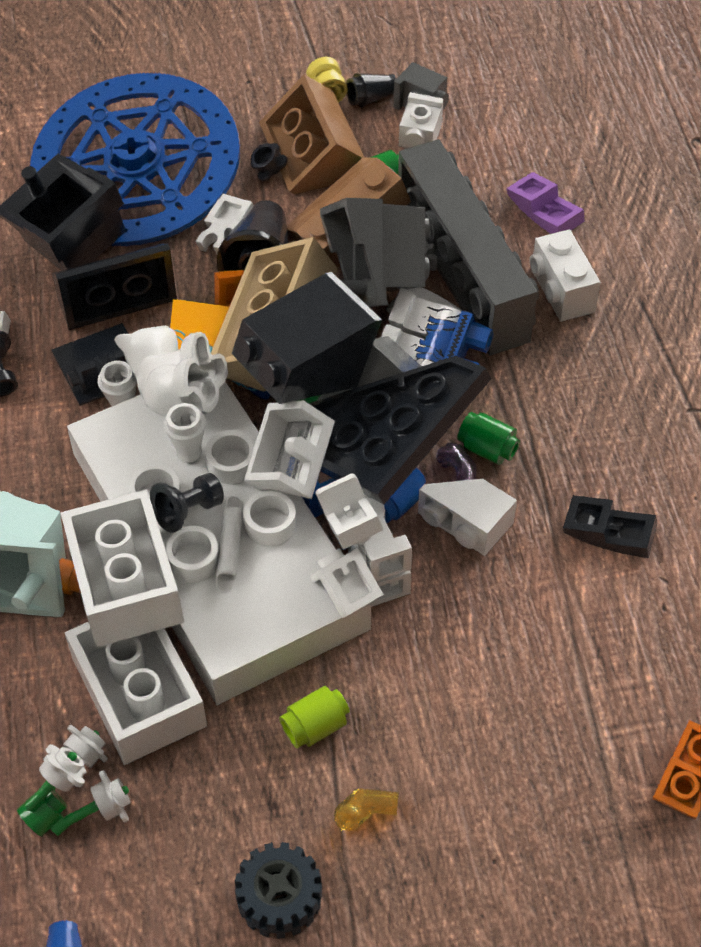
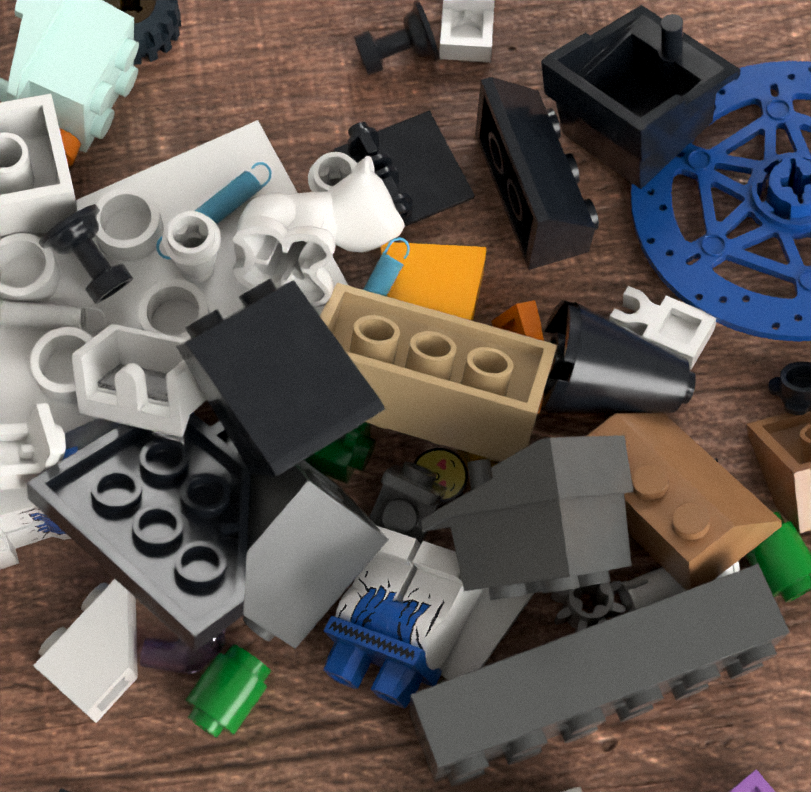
camera: 90 degrees right, 15 degrees up
(146, 439) = (229, 197): none -> medium azure piece

